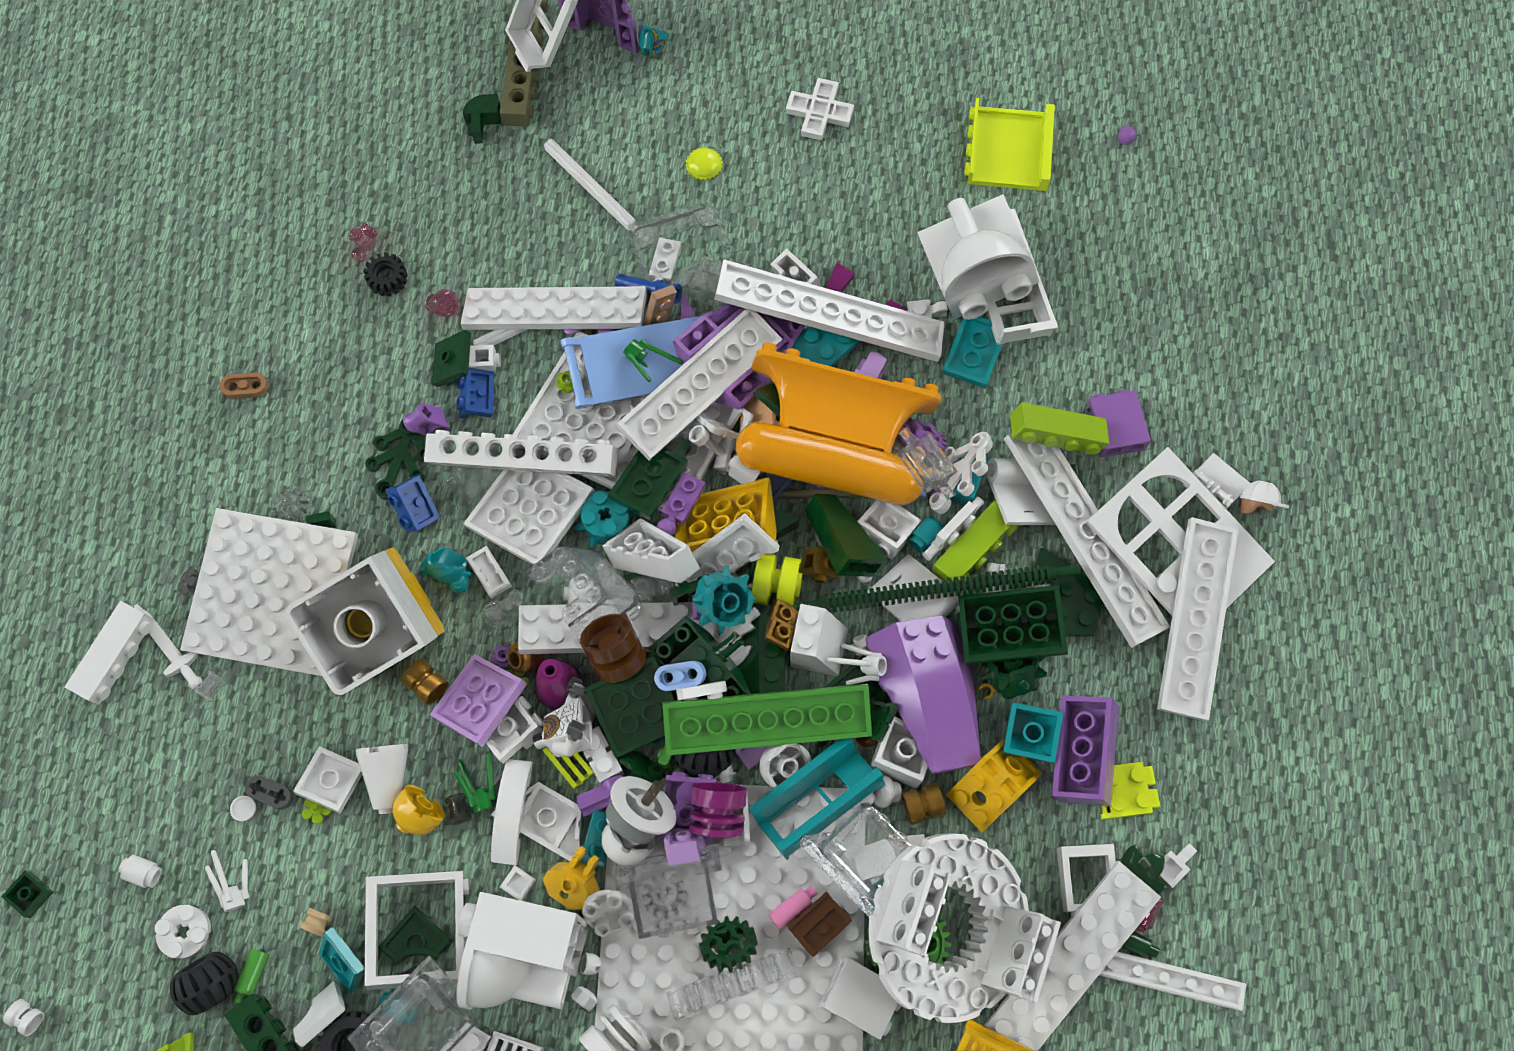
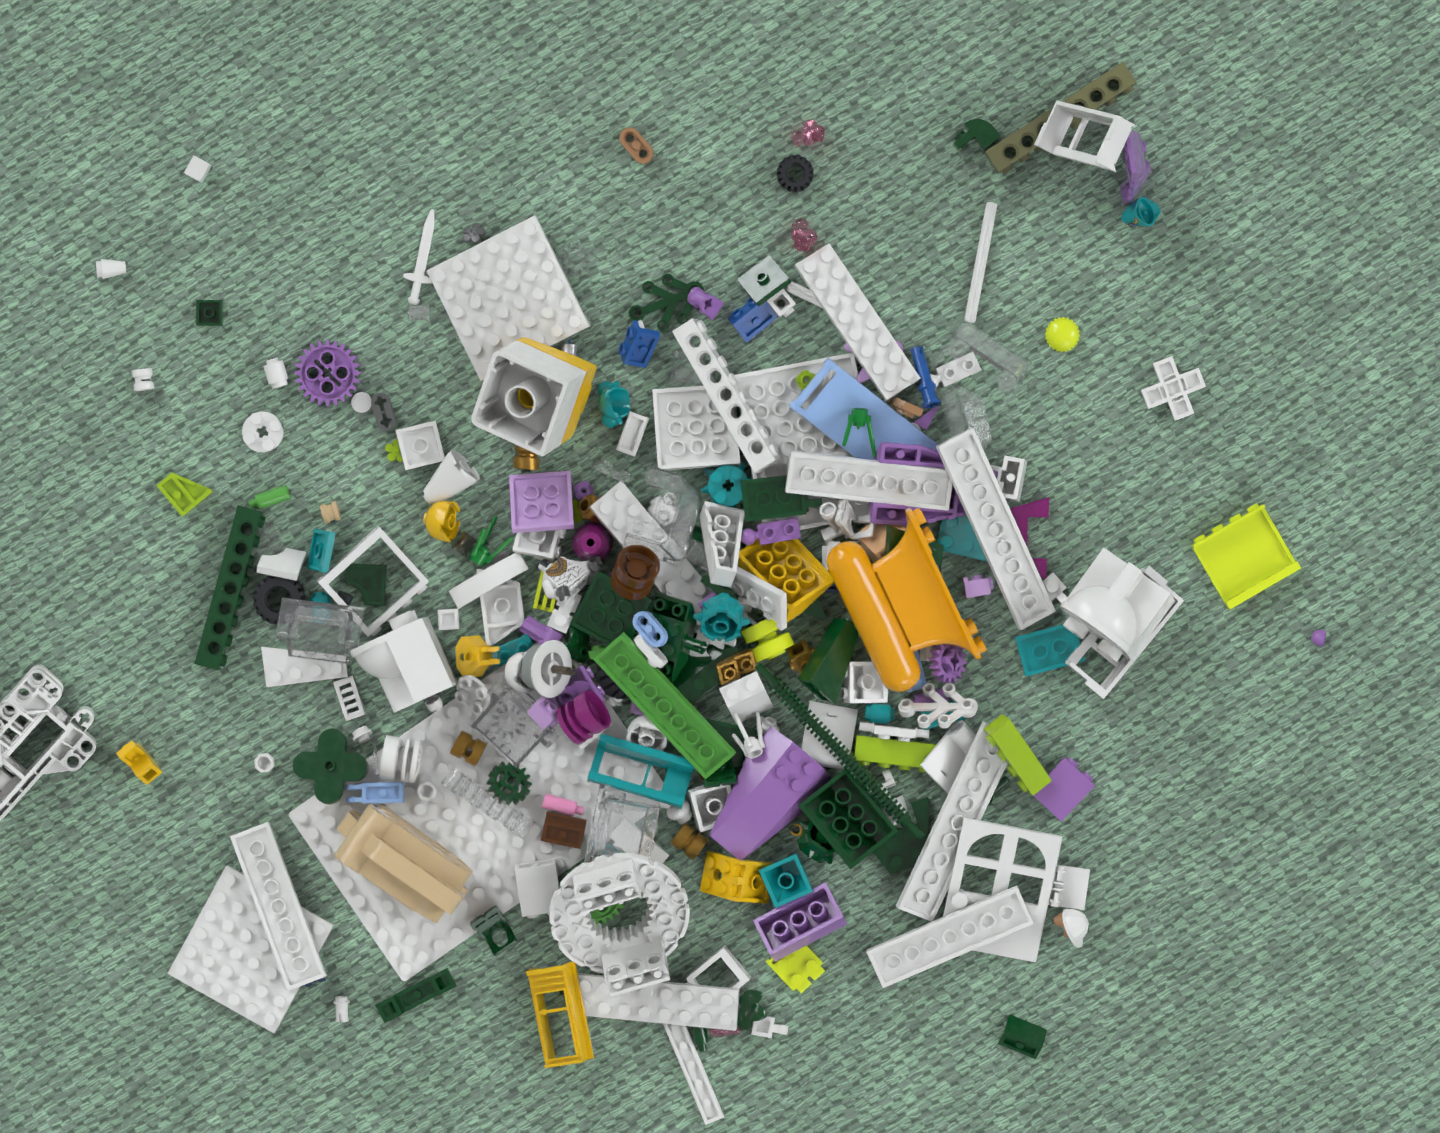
camera: 50 degrees right, 20 degrees up
(110, 653) = (389, 227): white brick -> none
(185, 840) = (315, 386): none -> medium lavender gear
(204, 983) = (245, 474): black wheel -> none
(230, 897) = (305, 445): white plant -> none
(322, 519) = (581, 289): dark green tile -> none
(585, 998) = (412, 717): white tile -> none
(651, 963) = (461, 745): none -> pearl gold wheel
(927, 463) = (922, 683): clear plate -> none
(1347, 622) = (1023, 1037): none -> dark green panel

